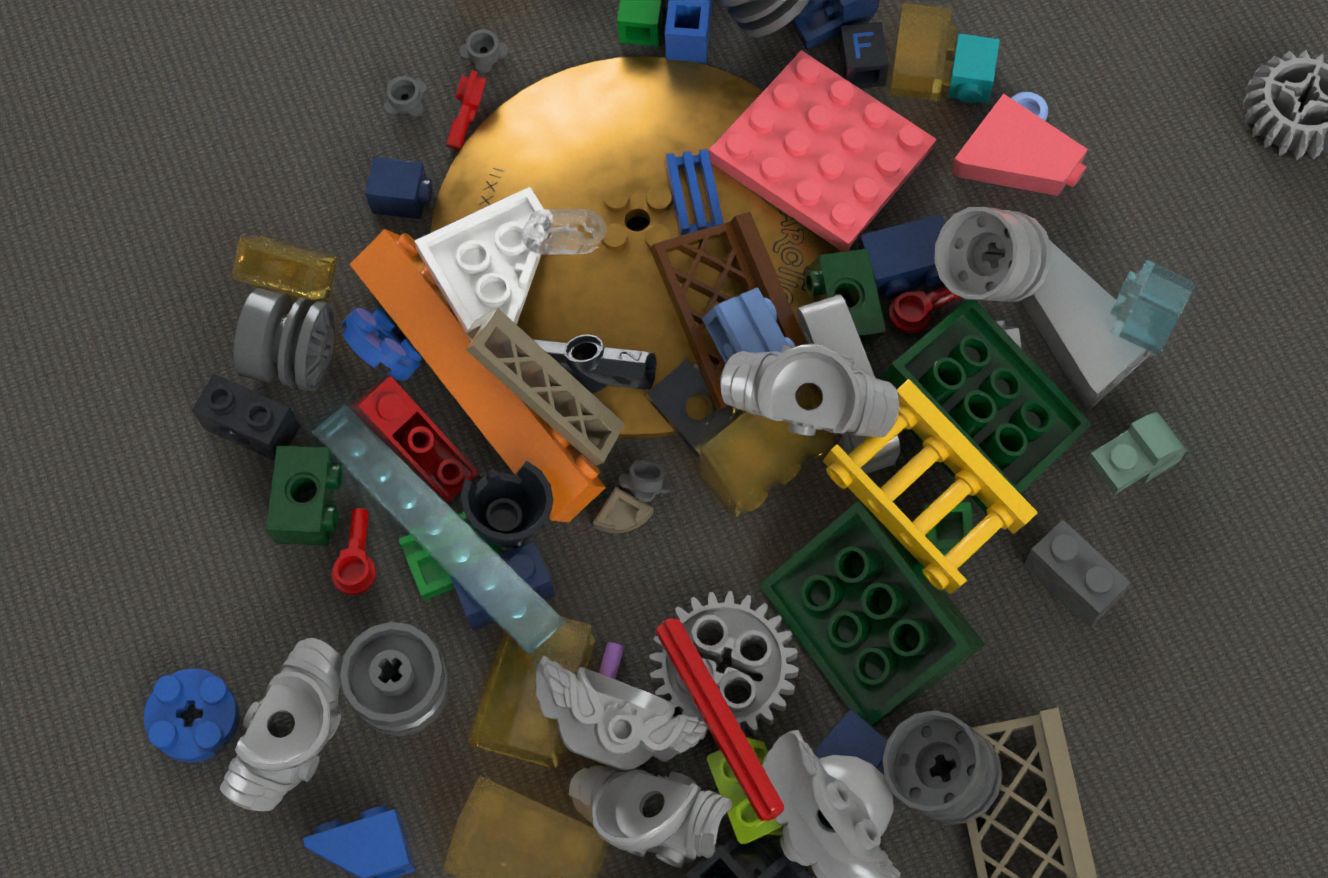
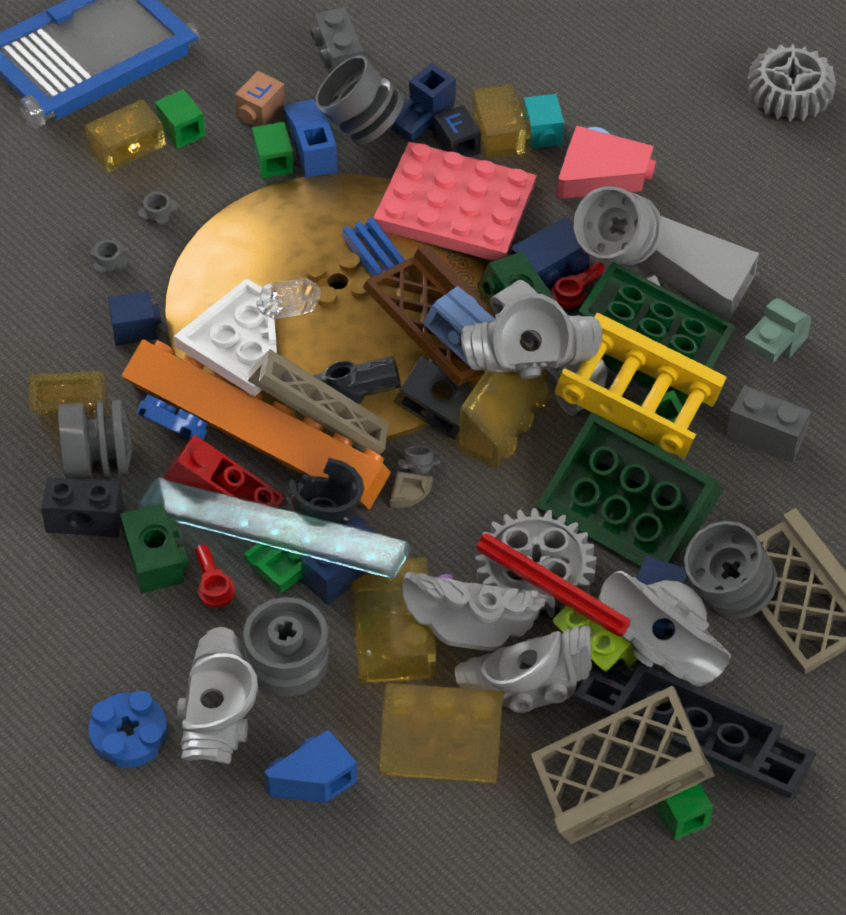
camera: 25 degrees left, 15 degrees down
(470, 92) = (162, 239): red plate -> none
(1150, 306) = (748, 225): clear light blue brick -> none

